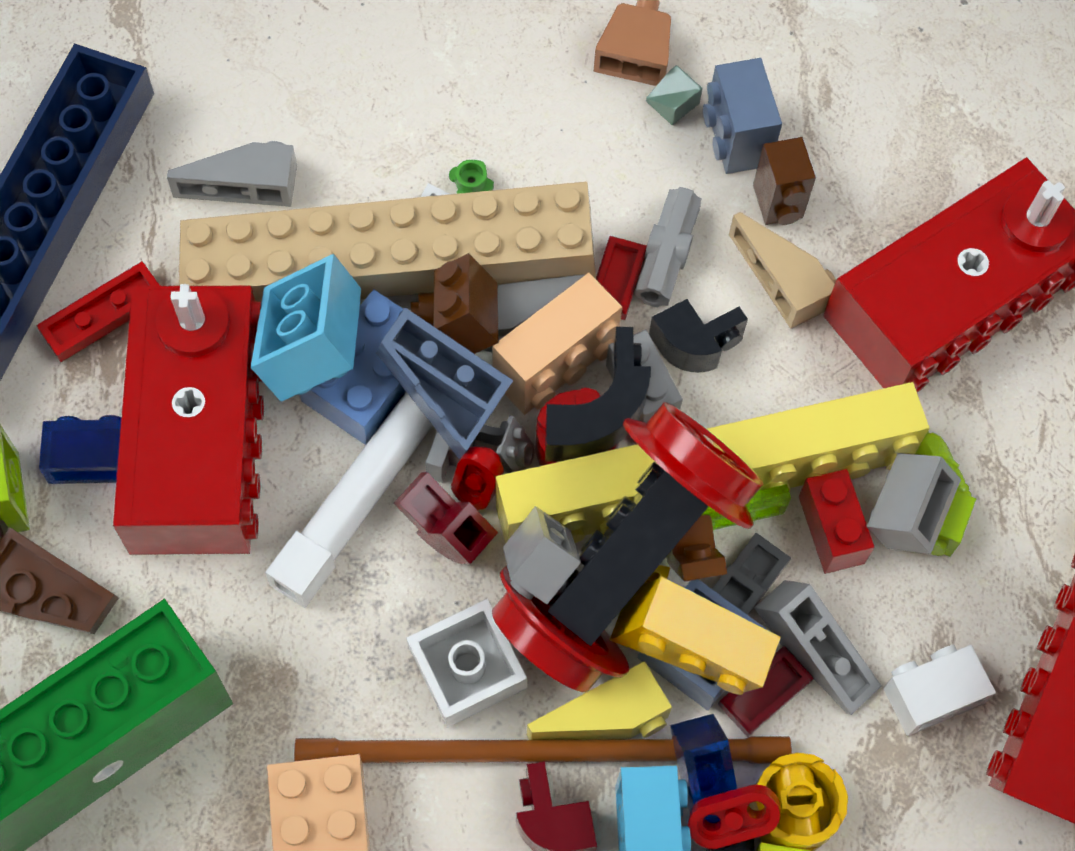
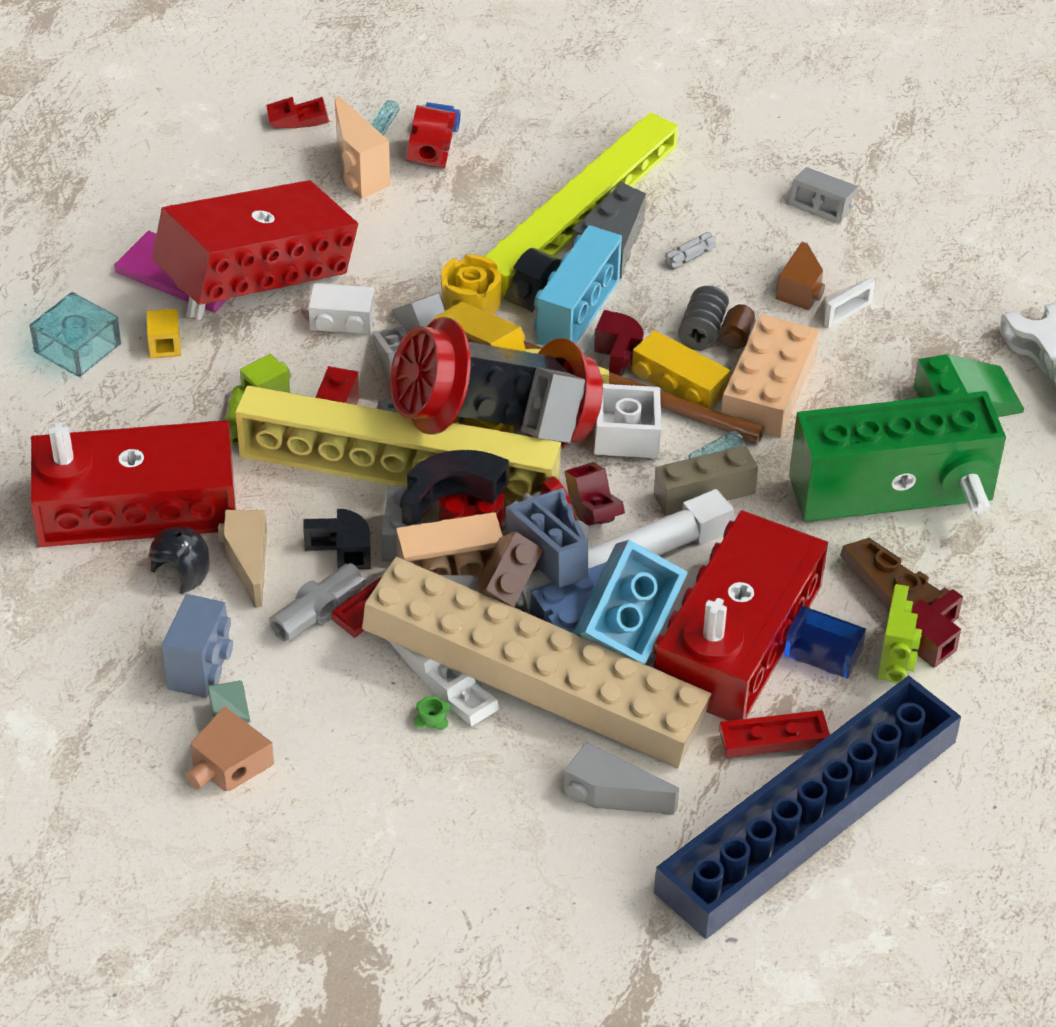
camera: 150 degrees left, 20 degrees down
(326, 622) = (728, 471): none -> dark tan brick
(342, 696) = (731, 440): none -> clear light blue axle
(446, 803) = (680, 370): none -> yellow brick
(703, 759) = (517, 309): clear blue brick -> none
(737, 819) = (507, 270): red plate -> none
(784, 181) = (205, 577): reddish brown brick -> none
(832, 728) = (419, 312): none -> light grey slope
(842, 231) = (185, 550): none -> black piece
(914, 503) = (288, 369): light grey brick -> none

